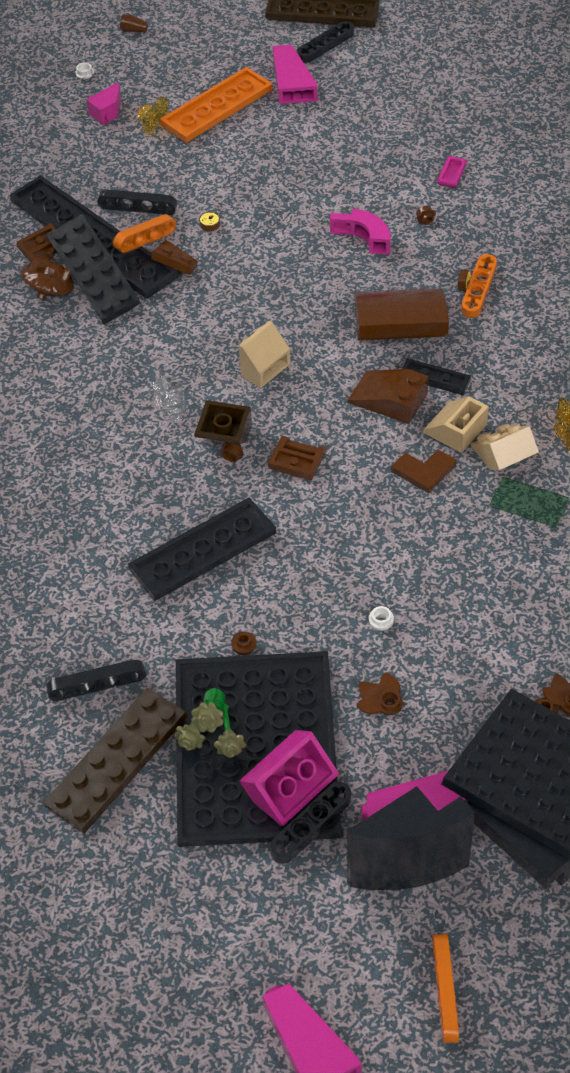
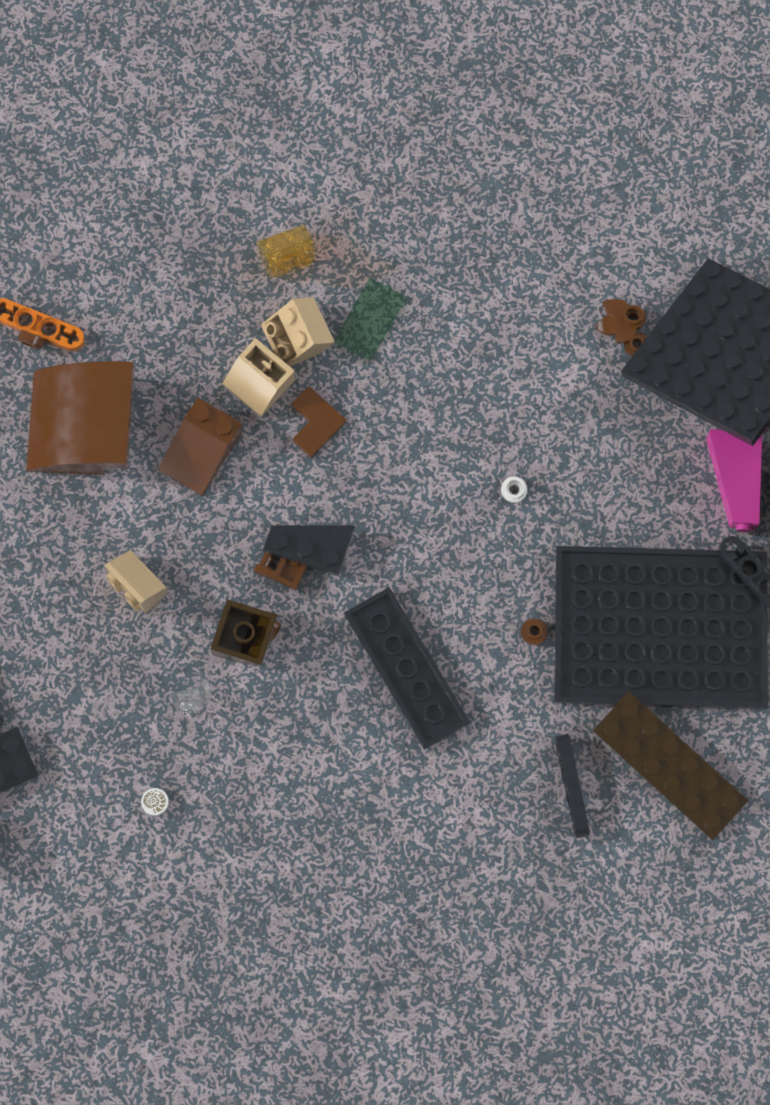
camera: 90 degrees left, 25 degrees up
(81, 393) = (154, 802): none -> tile
(209, 717) = (669, 658): olive plant -> none
(289, 776) = (710, 593): dark pink slope -> none
(307, 468) = (311, 545): none -> black wing
(377, 695) = (605, 503): reddish brown plate -> none
(440, 377) = (177, 393): black tile -> none

